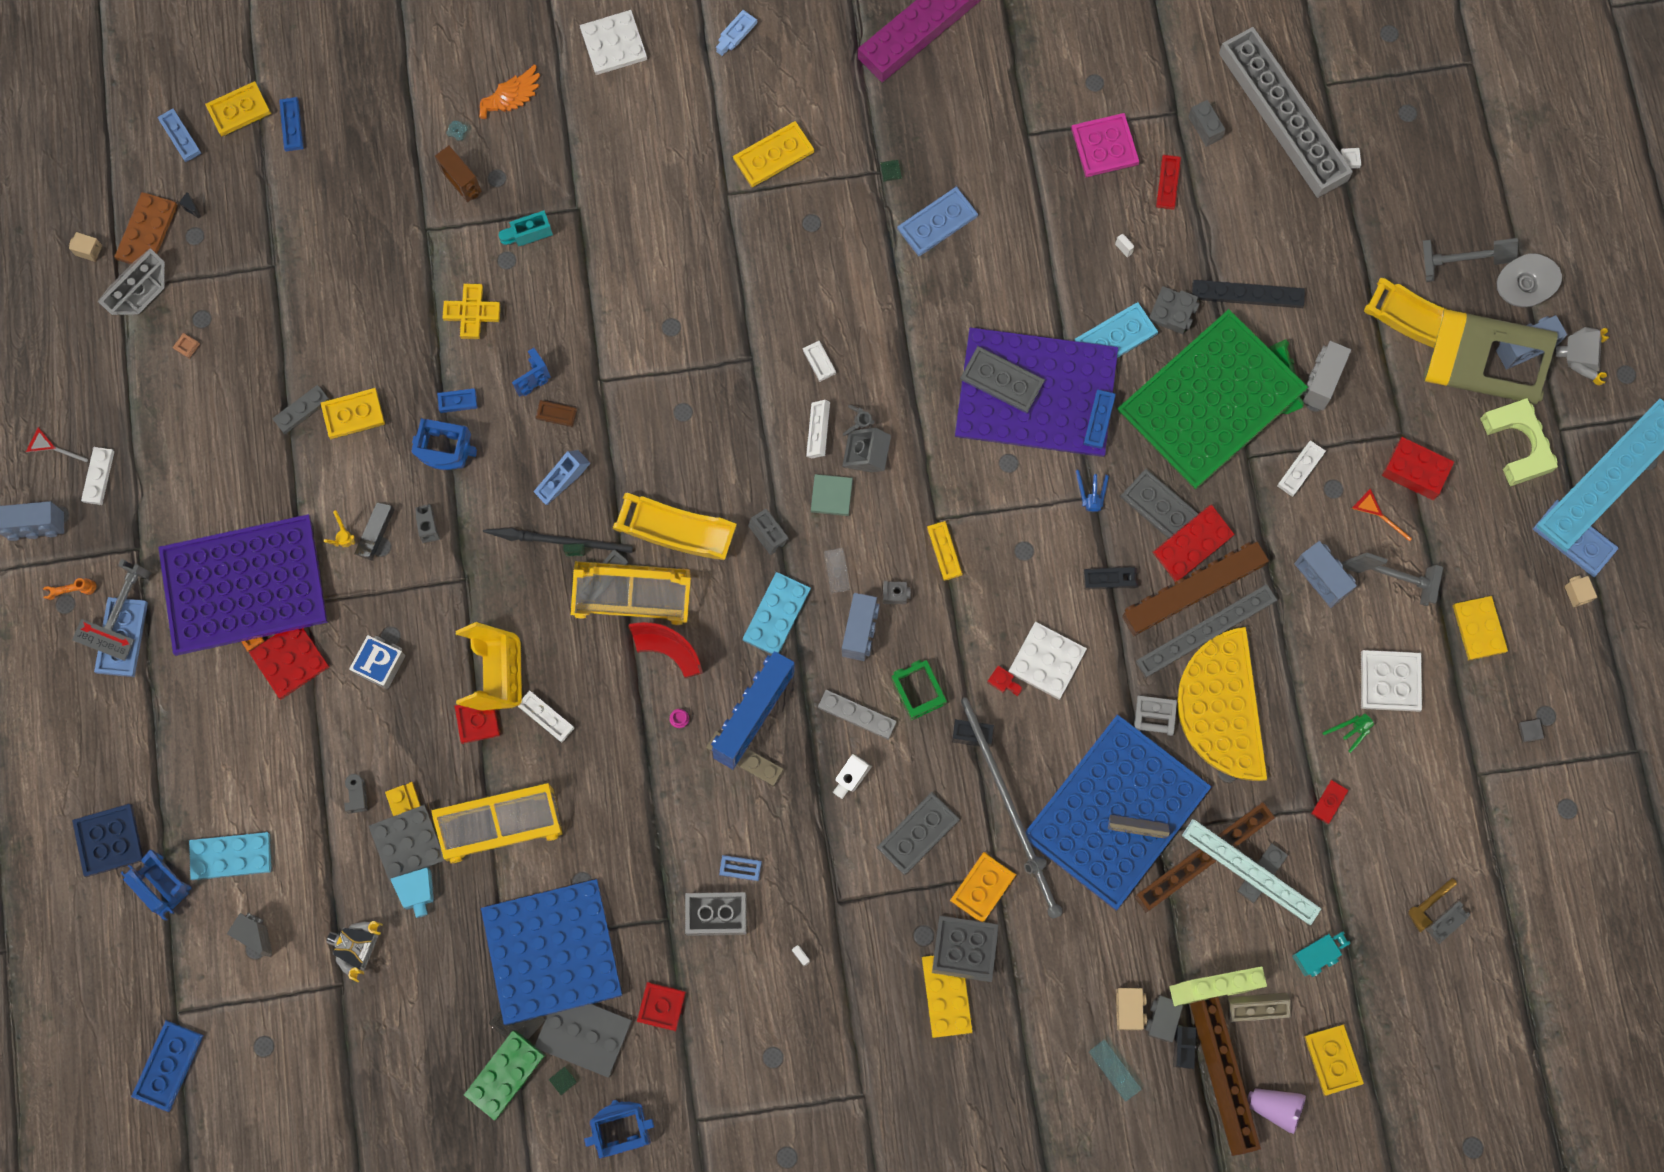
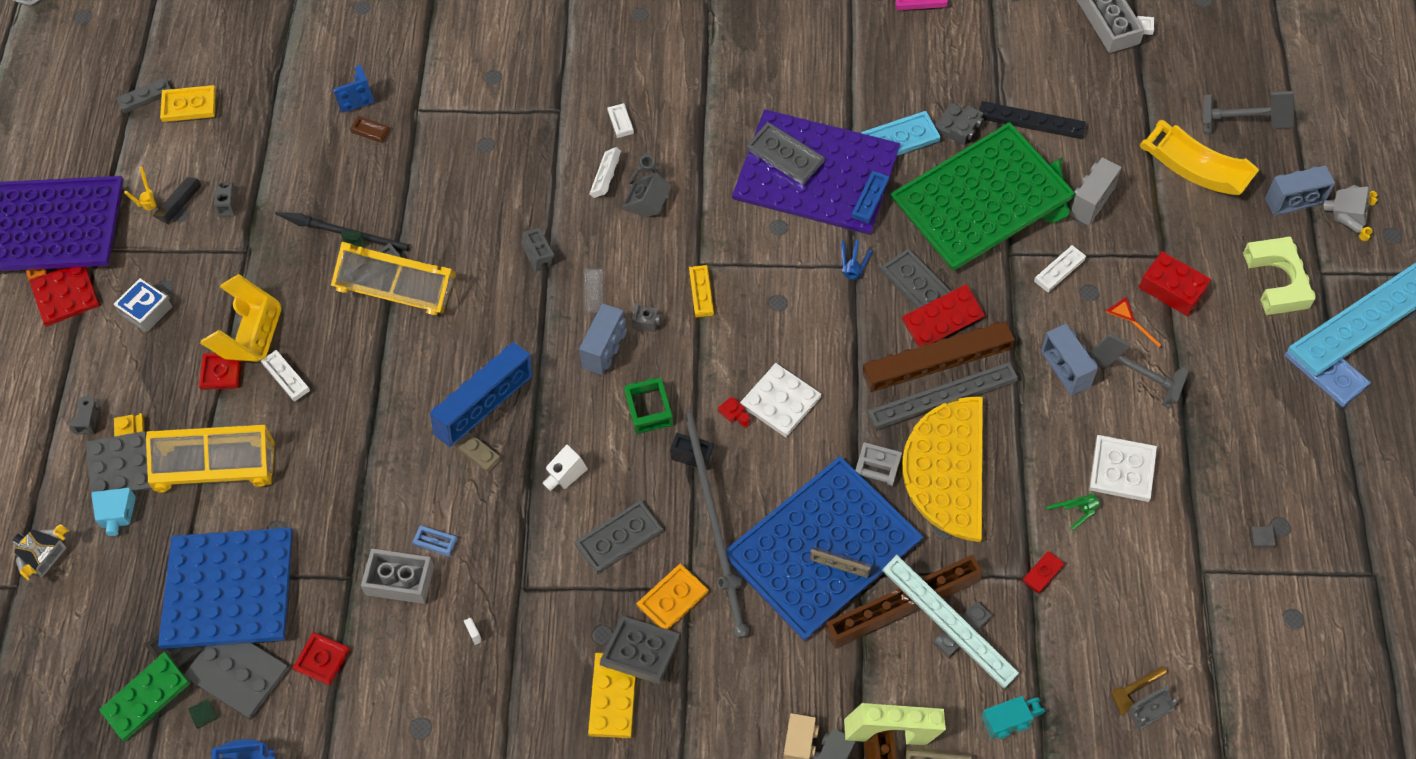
camera: 10 degrees right, 15 degrees down
(186, 345) = (62, 34): nougat tile -> none
(440, 459) = (243, 139): blue animal -> none
(457, 400) = (284, 106): blue plate -> none
(471, 311) = (318, 39): yellow plate -> none
(562, 475) = (360, 176): medium blue slope -> none
(664, 640) = (414, 323): red panel -> none
(676, 528) = (450, 234): yellow windscreen -> none
(679, 718) = (411, 396): dark pink plate -> none
(776, 614) = (529, 319): medium azure plate -> none
(831, 495) = (605, 229): sand green tile -> none
(857, 714) = (584, 420): light grey plate -> none
(937, 221) = (754, 27): medium blue tile -> none
(1110, 578) = (857, 336): black plate -> none
(1124, 245) = (922, 65): white tile -> none
(1168, 182) = (971, 23): red tile -> none
(1464, 349) = (1232, 184): olive piece -> none
(1480, 628) = (1220, 435): yellow plate -> none
(1529, 280) = (1302, 139): light grey hat -> none
(1580, 591) = (1327, 414): tan brick -> none

